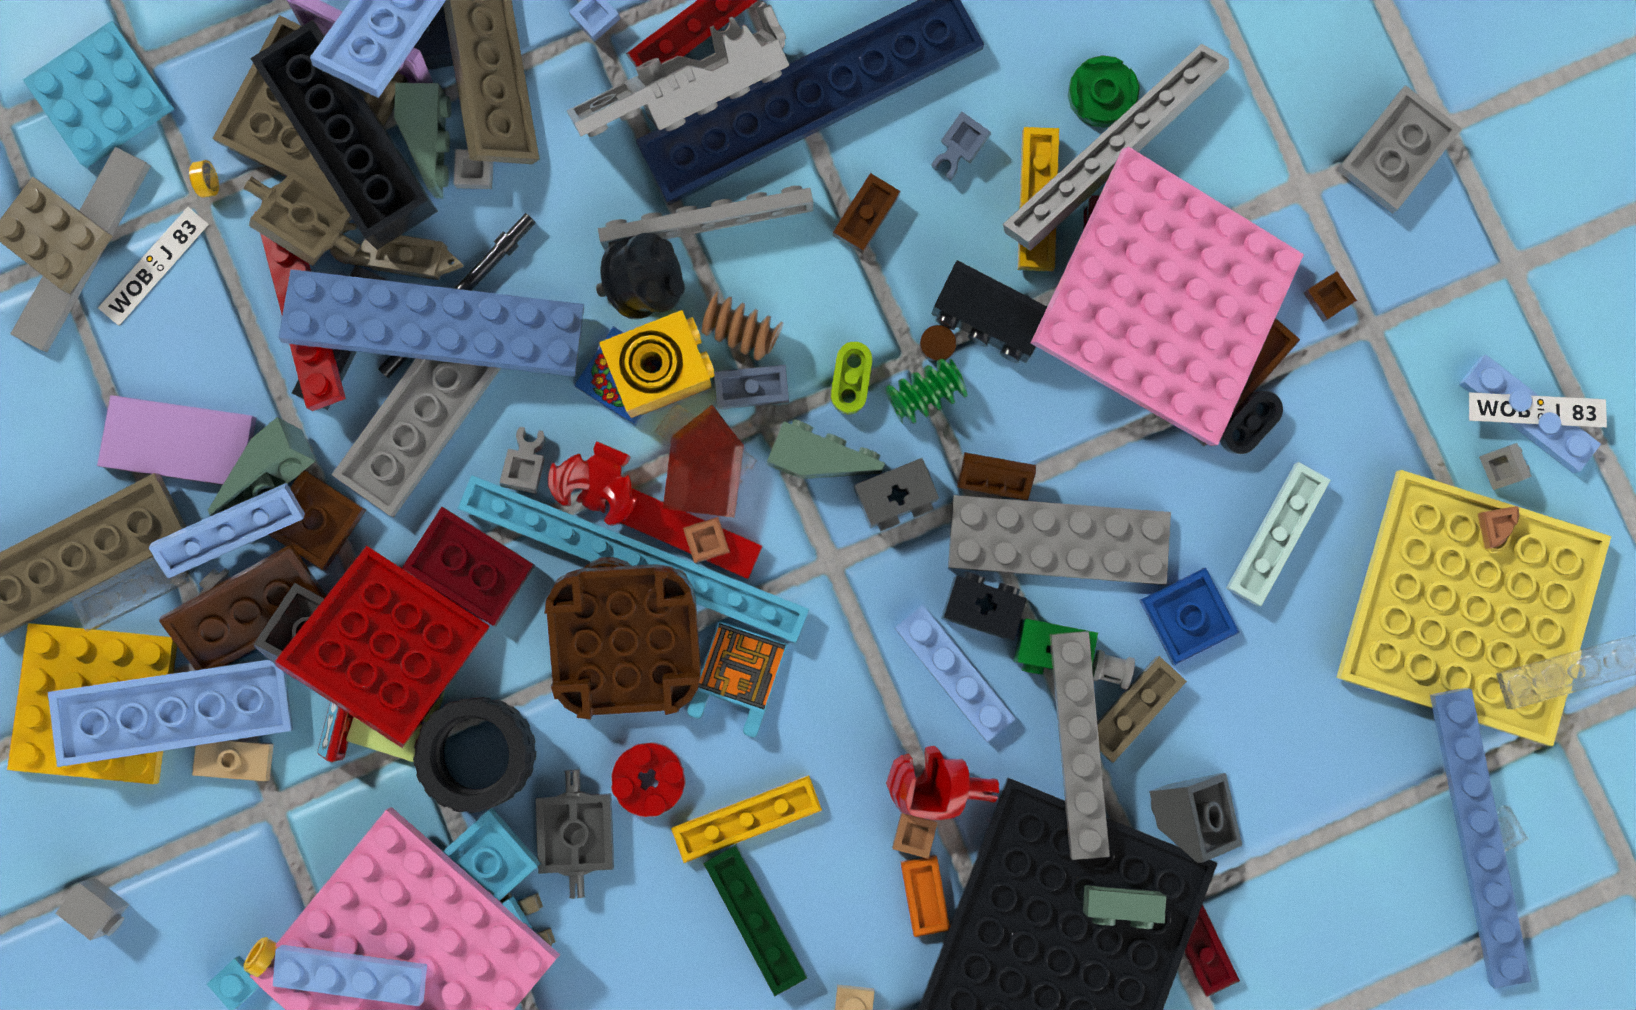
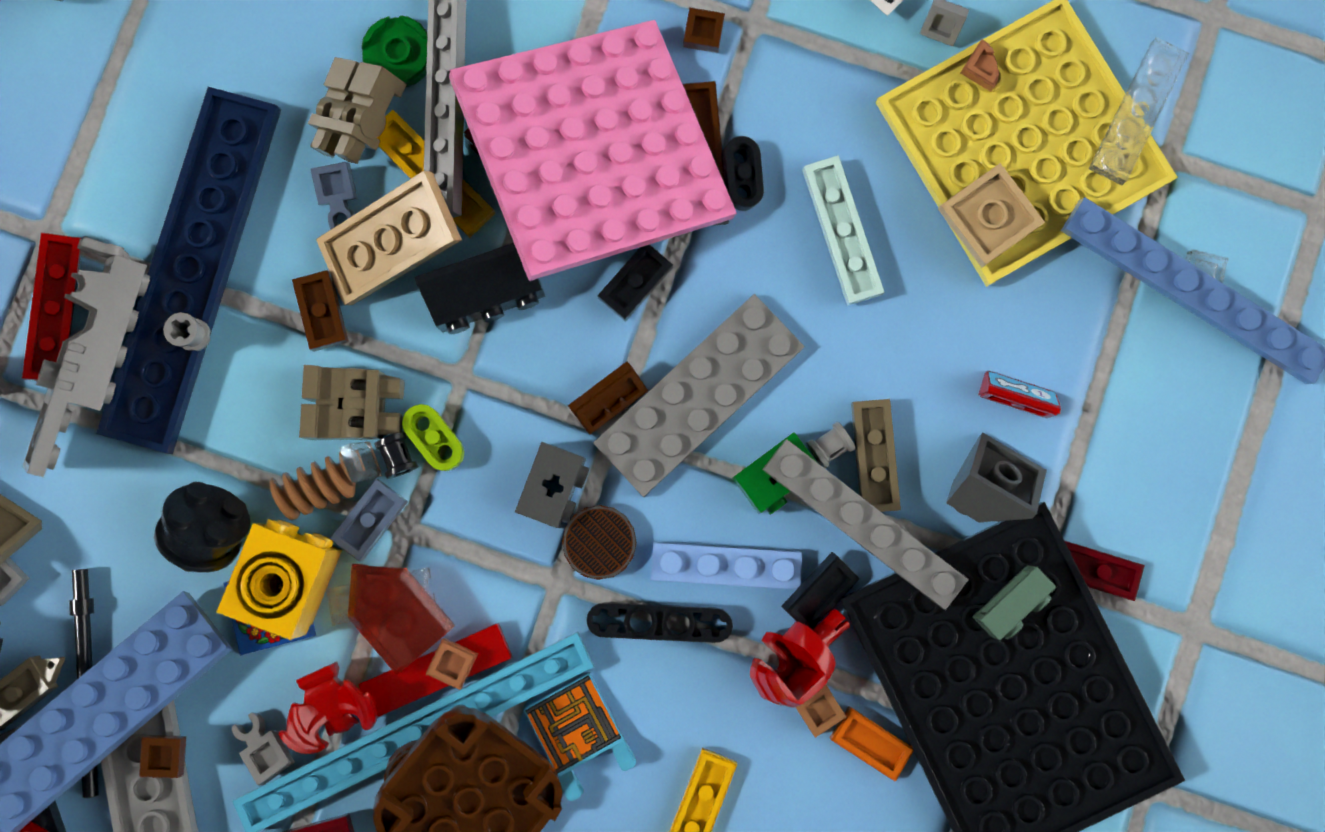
camera: 45 degrees left, 0 degrees up
(460, 398) = (162, 756): none -> reddish brown plate
(720, 215) = (215, 425): light grey plate -> none
(758, 128) = (175, 332): none -> light grey bush
(787, 342) = (360, 461): none -> clear tile
(812, 456) = (464, 523): sand green slope -> none
(814, 363) = (396, 455): none -> black bush
(820, 271) = (340, 387): none -> dark tan hips
(867, 664) = (659, 628): none -> black beam
(887, 565) = (599, 542): none -> tile
(926, 390) = (495, 390): green piece -> none
(937, 343) = (469, 348): reddish brown tile -> none
(965, 214) = (388, 238): none -> tan plate
(1000, 621) = (719, 497): black brick -> none
(1000, 758) = (820, 591): none -> black tile
(1033, 101) = (353, 108): none -> dark tan hips
(1098, 418) = (635, 281): none -> black plate
(1189, 616) = (843, 351): blue tile -> none
(1278, 775) = (1019, 395): none -> red slope
(1392, 632) = (991, 215): none -> tan plate

